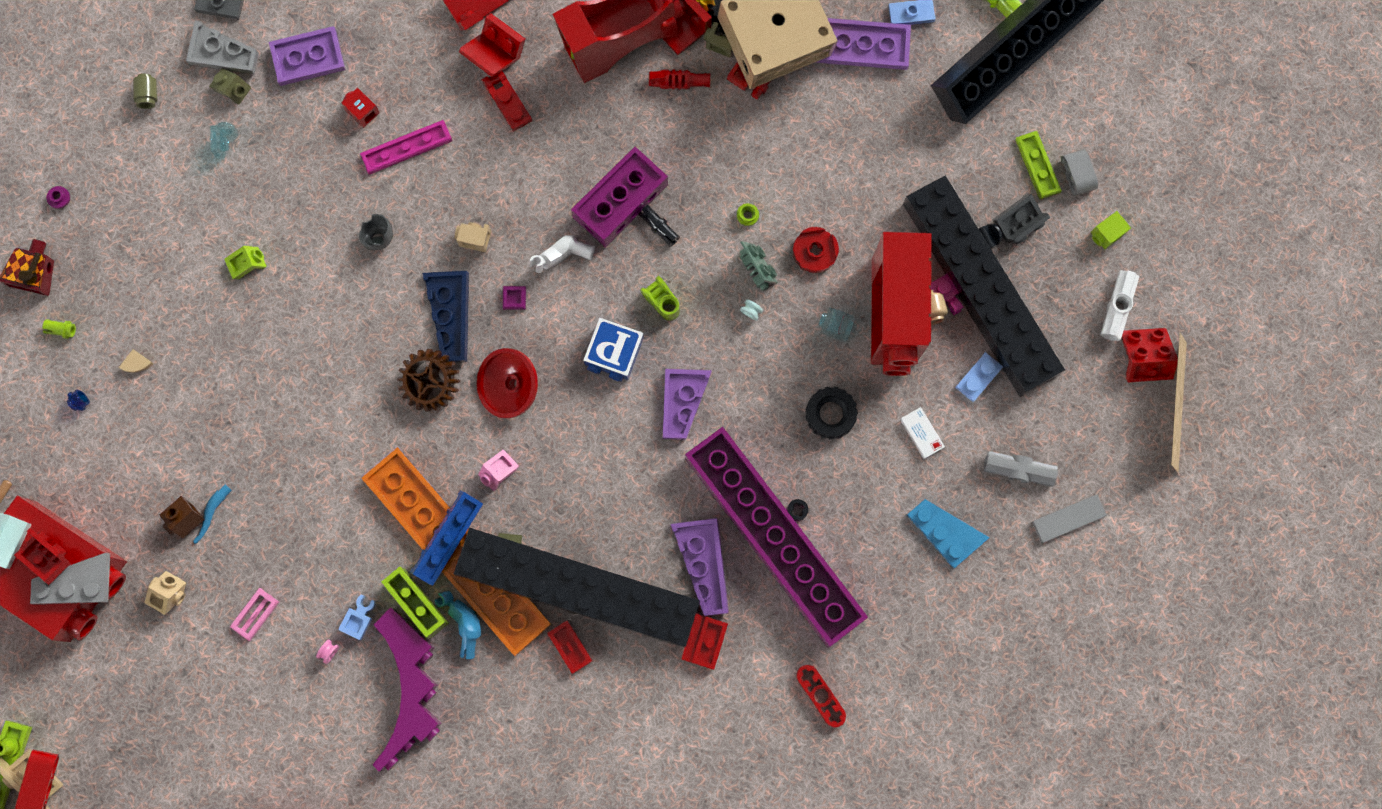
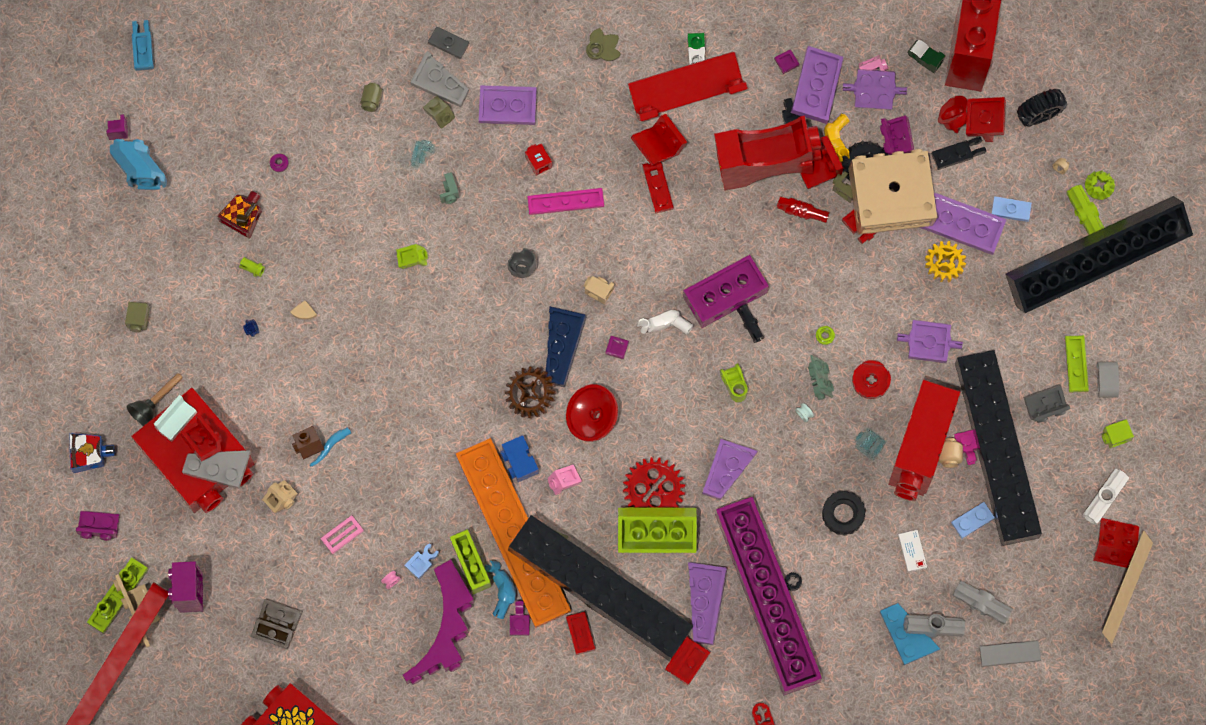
camera: 20 degrees right, 5 degrees down
(77, 740) = (186, 586): none -> magenta brick
(205, 746) = (276, 623): none -> dark brown slope
(270, 174) = (450, 188): none -> sand green bracket
(432, 456) = (516, 454): none -> blue brick
(446, 538) = (509, 519): blue hinge -> none
(494, 657) = (519, 623): none -> magenta plate
(585, 441) = (640, 477): none -> red gear
(613, 350) = (683, 411): piece -> none
(623, 498) = (657, 530): none -> lime brick
(862, 100) = (942, 254): none -> yellow gear
(867, 187) = (929, 341): none -> medium lavender plate
(964, 517) = (944, 626): none -> light grey piece
(991, 234) = (1018, 409): black plate -> none

